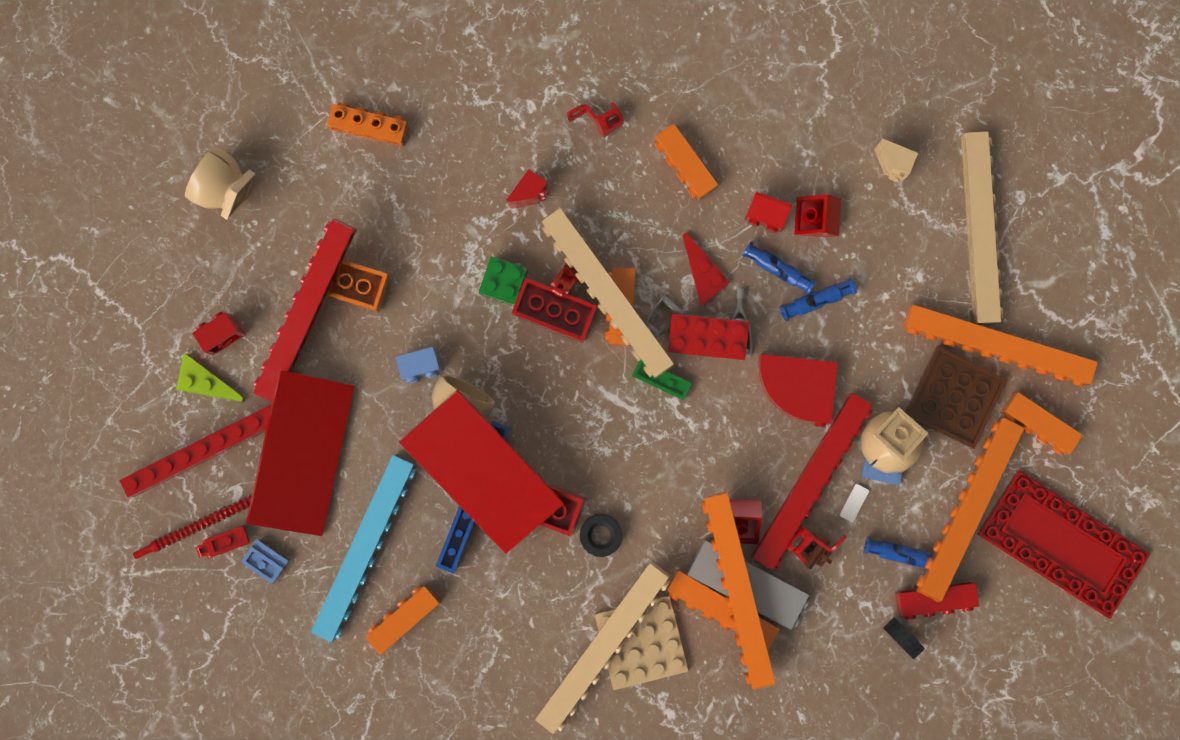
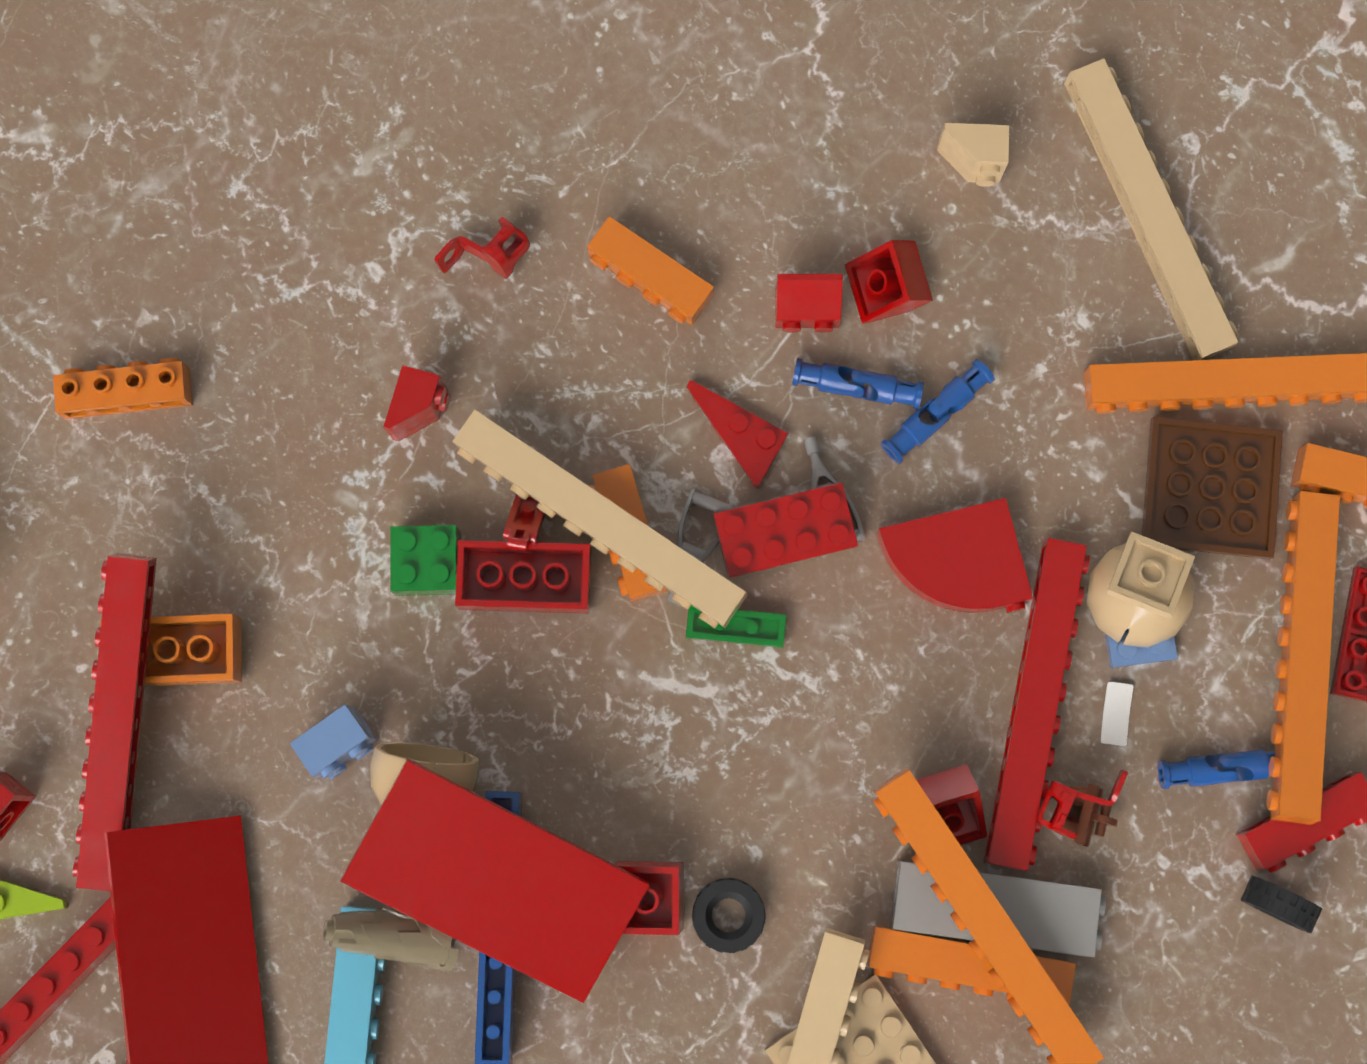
camera: 20 degrees left, 5 degrees down
(415, 481) = (391, 936): none -> dark tan cone

